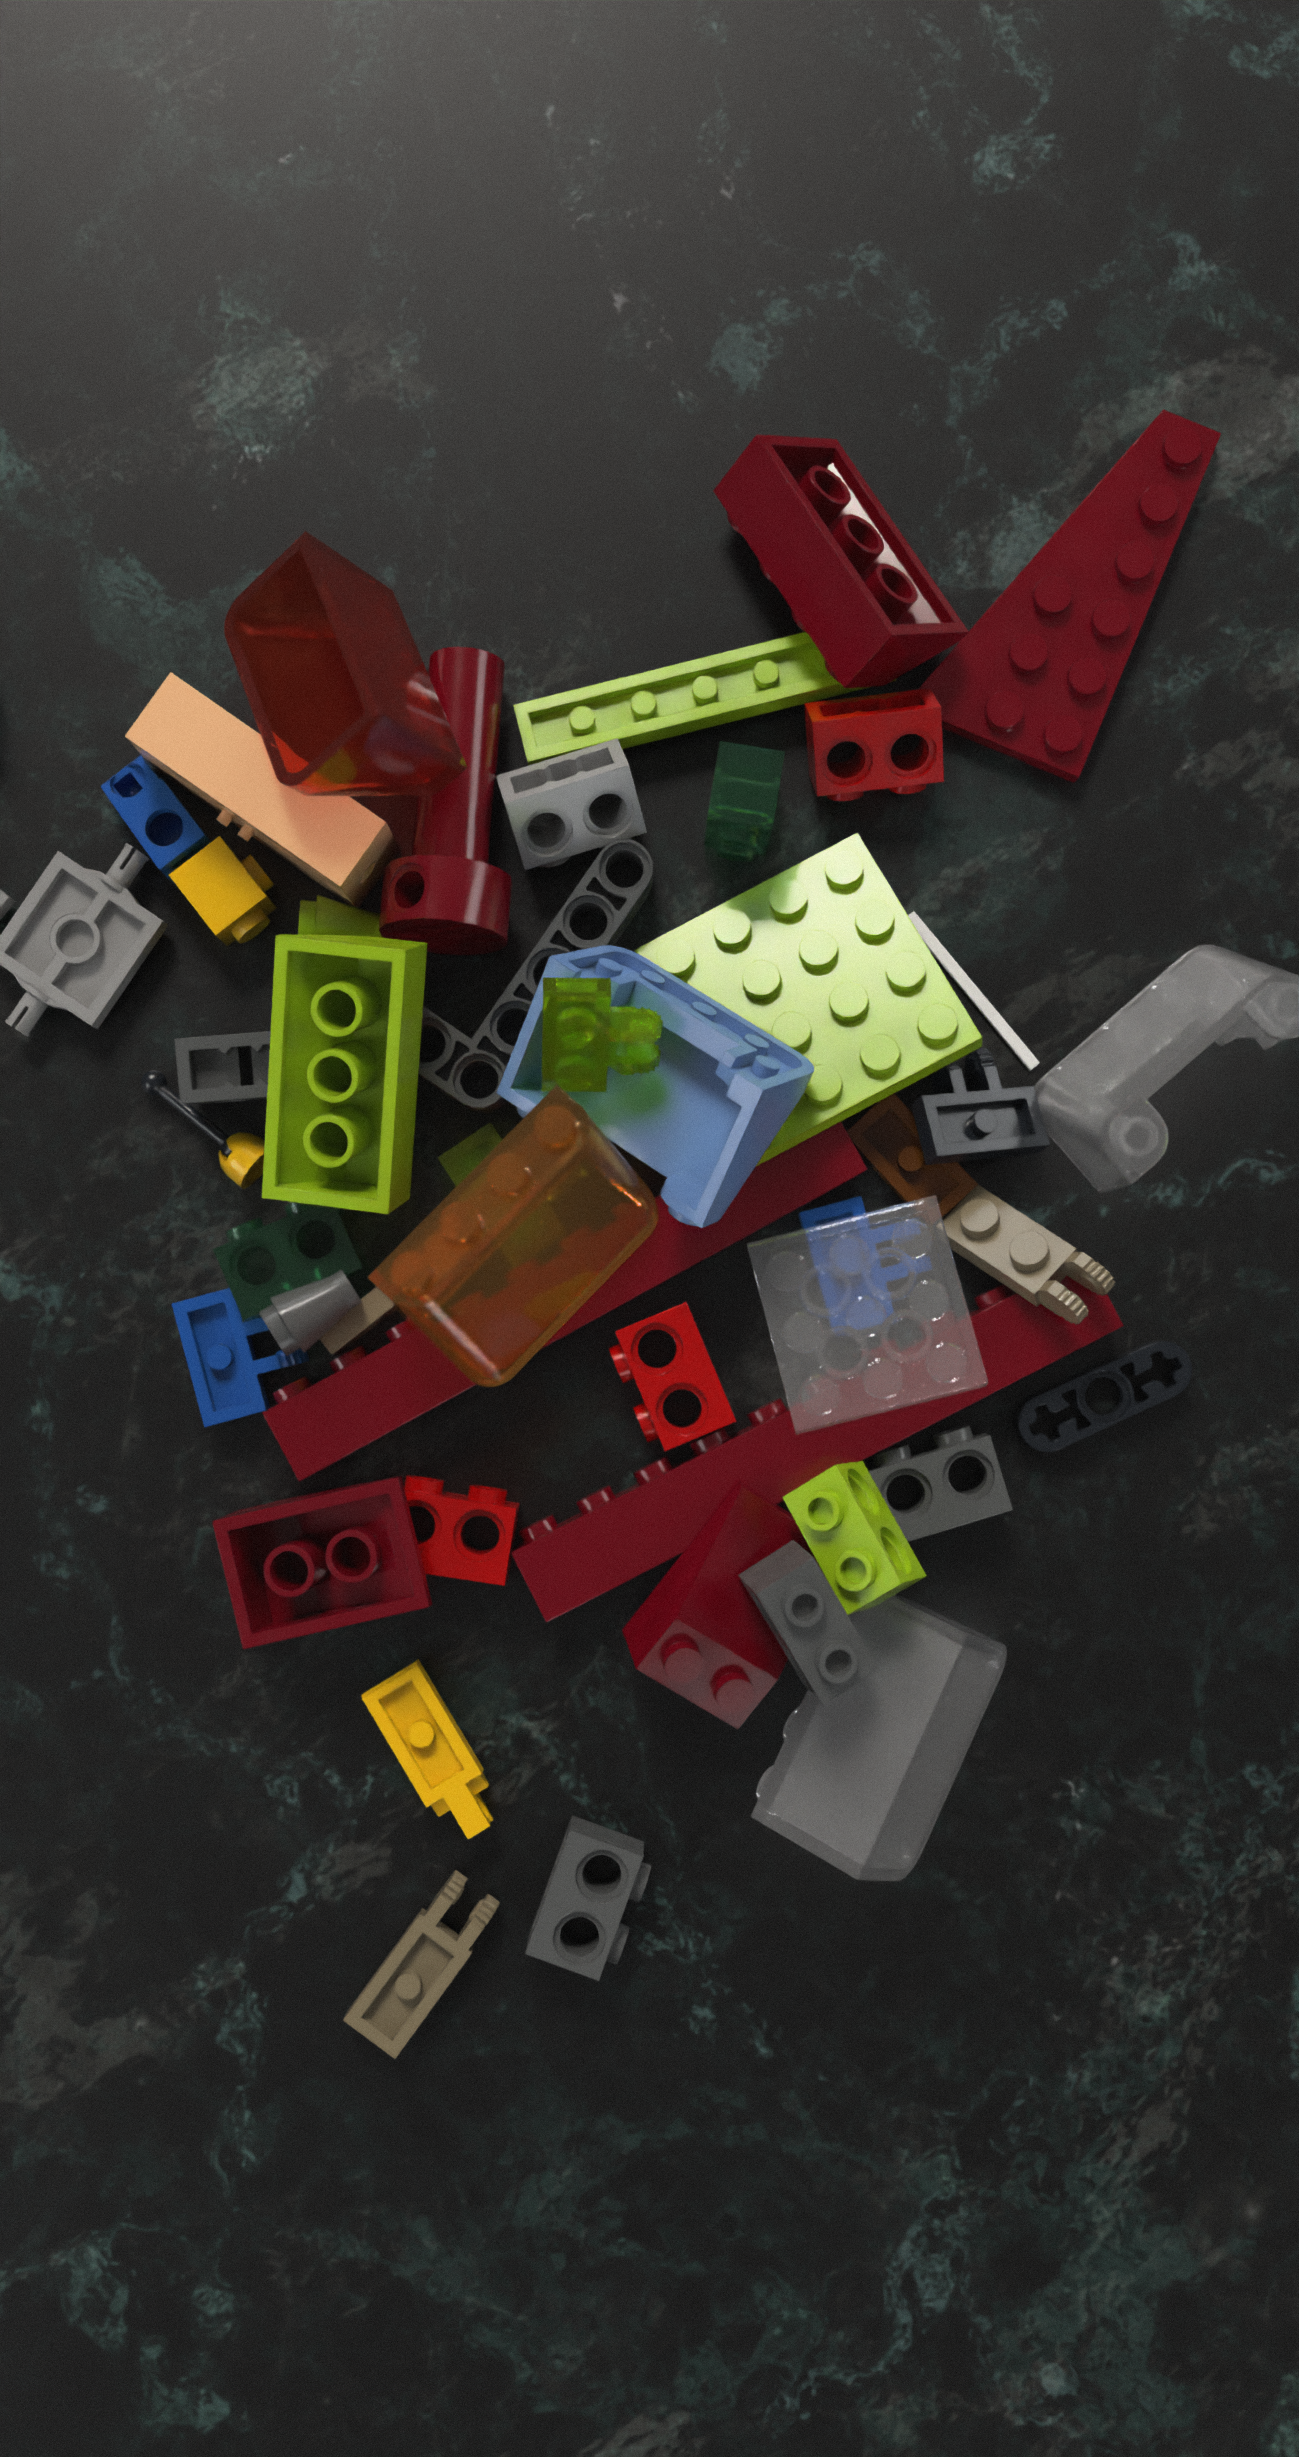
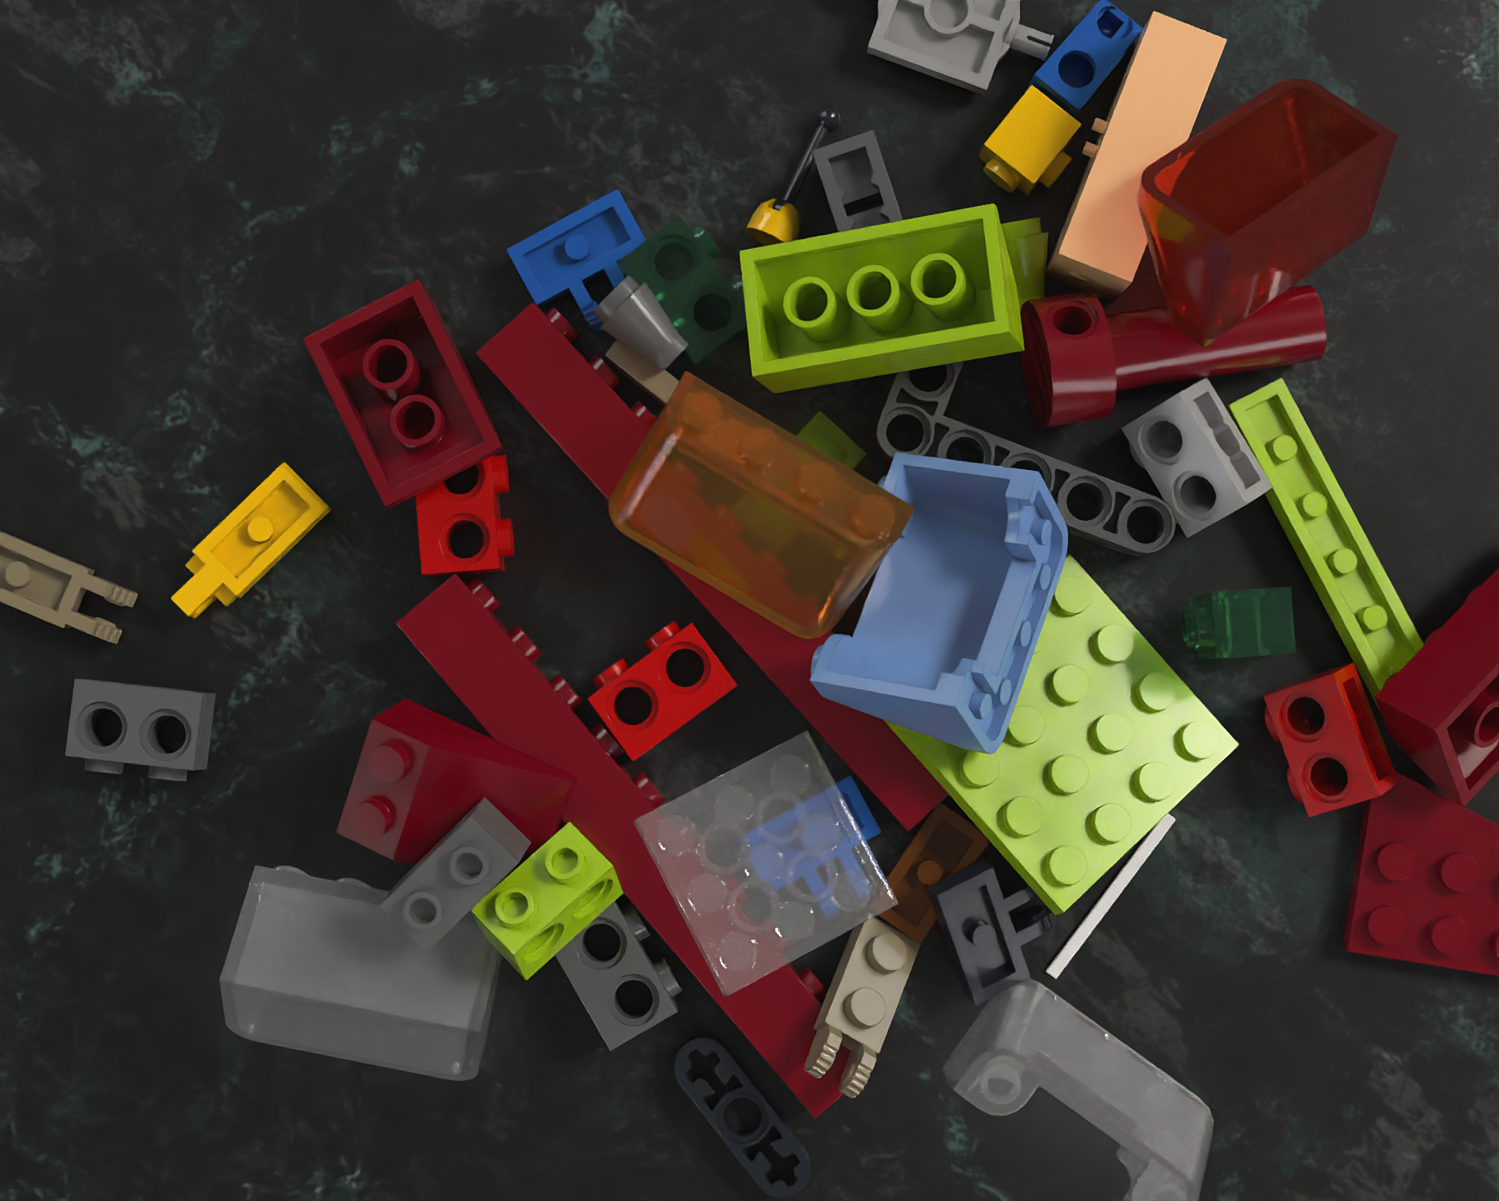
camera: 80 degrees right, 0 degrees up
(588, 1035) = (972, 527): clear neon green hinge -> none

